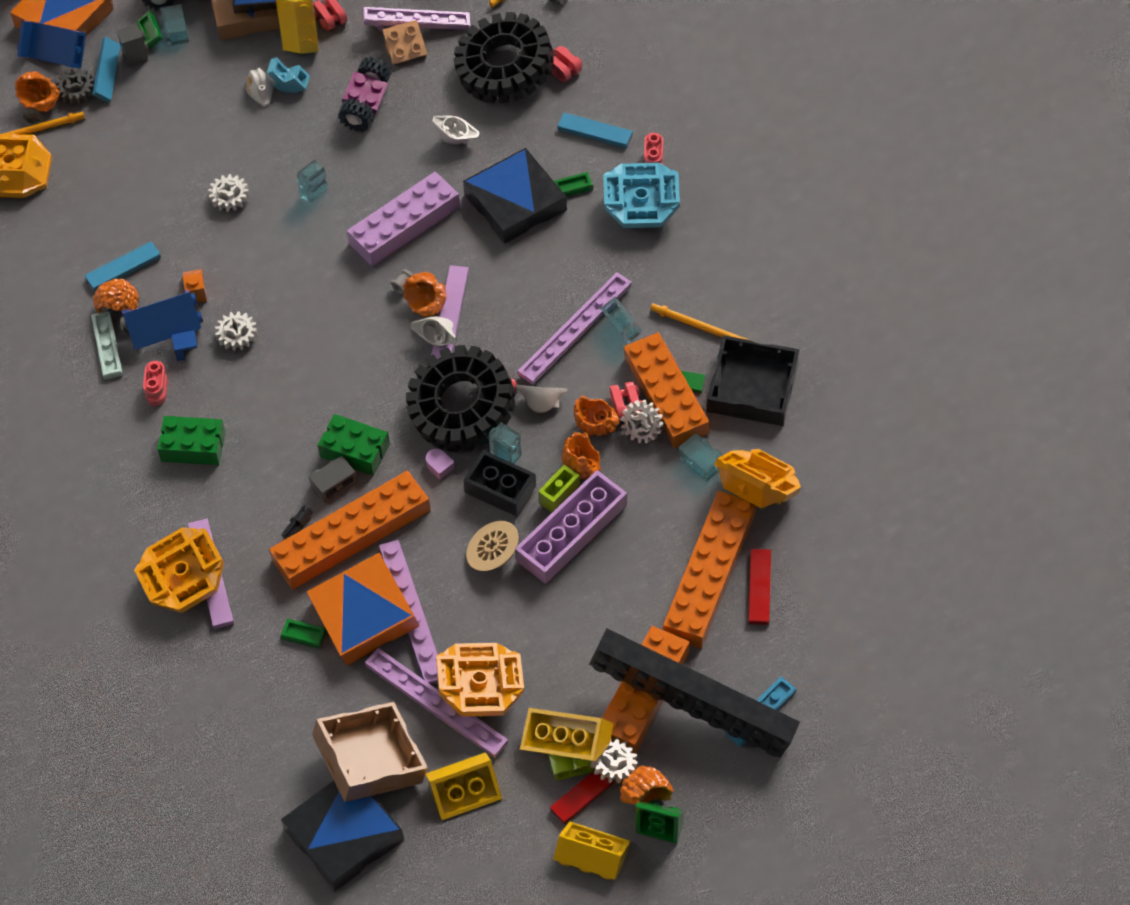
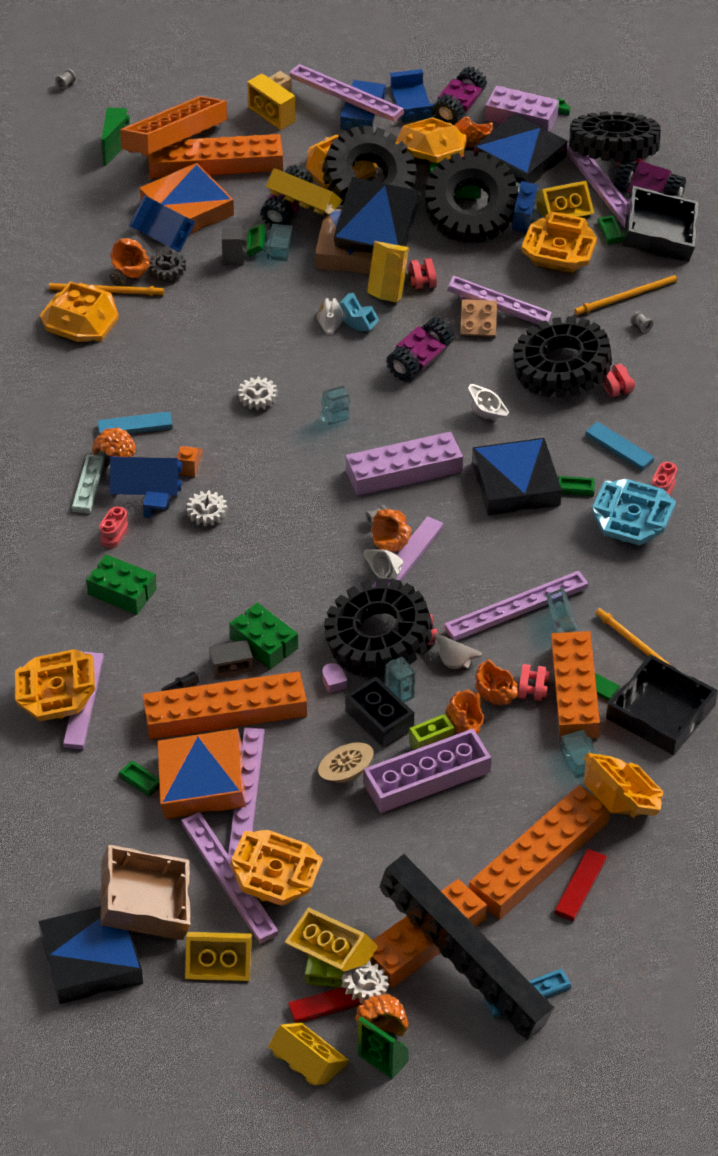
camera: 20 degrees right, 10 degrees down
(106, 69) = (201, 260): dark azure tile -> none
(635, 425) = (538, 703): white gear -> none

